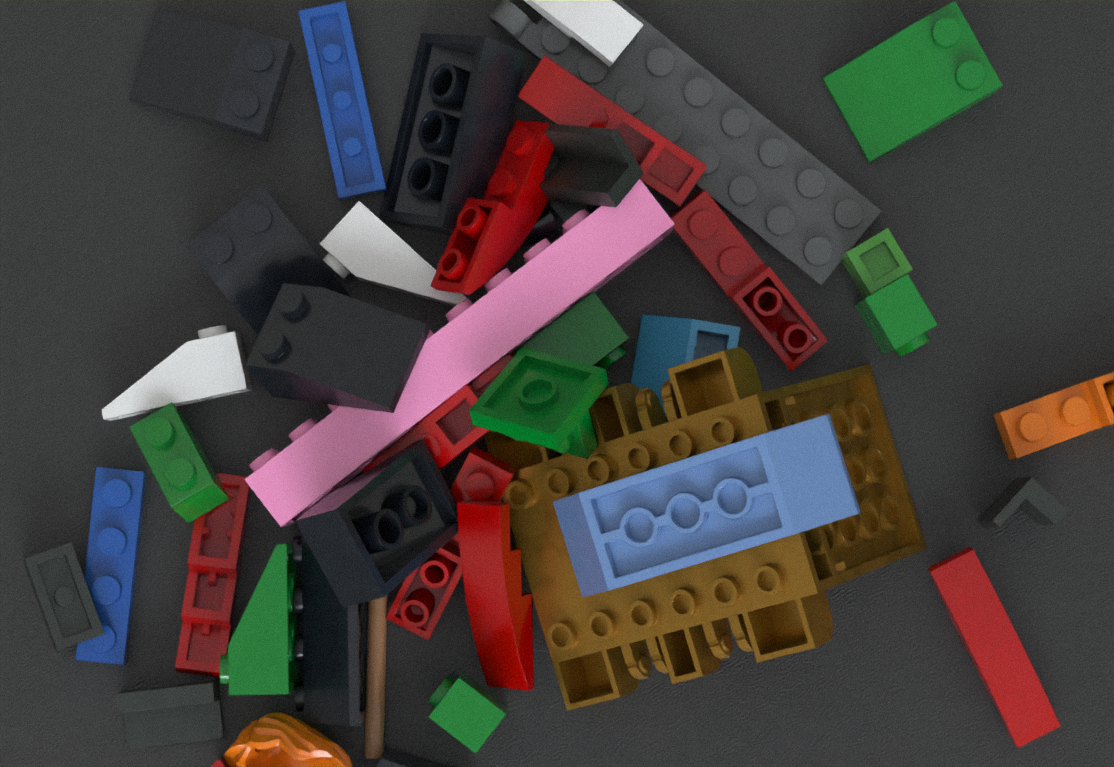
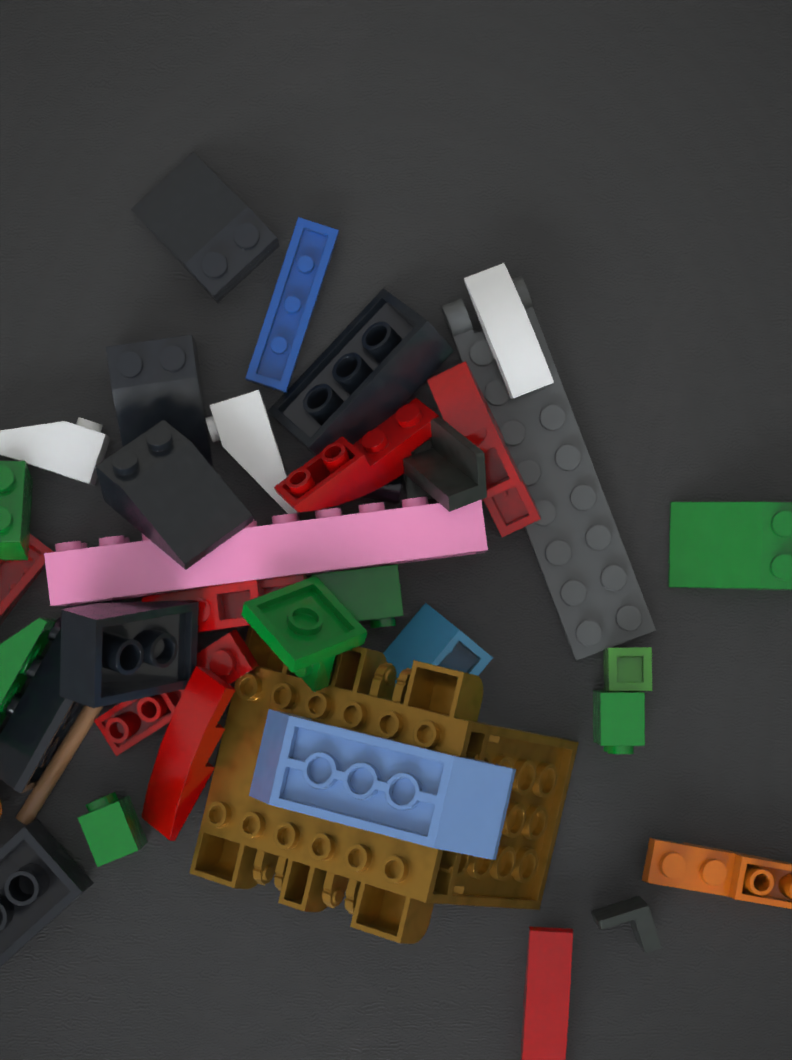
camera: 30 degrees right, 0 degrees up
(746, 280) = (520, 623): red slope -> none

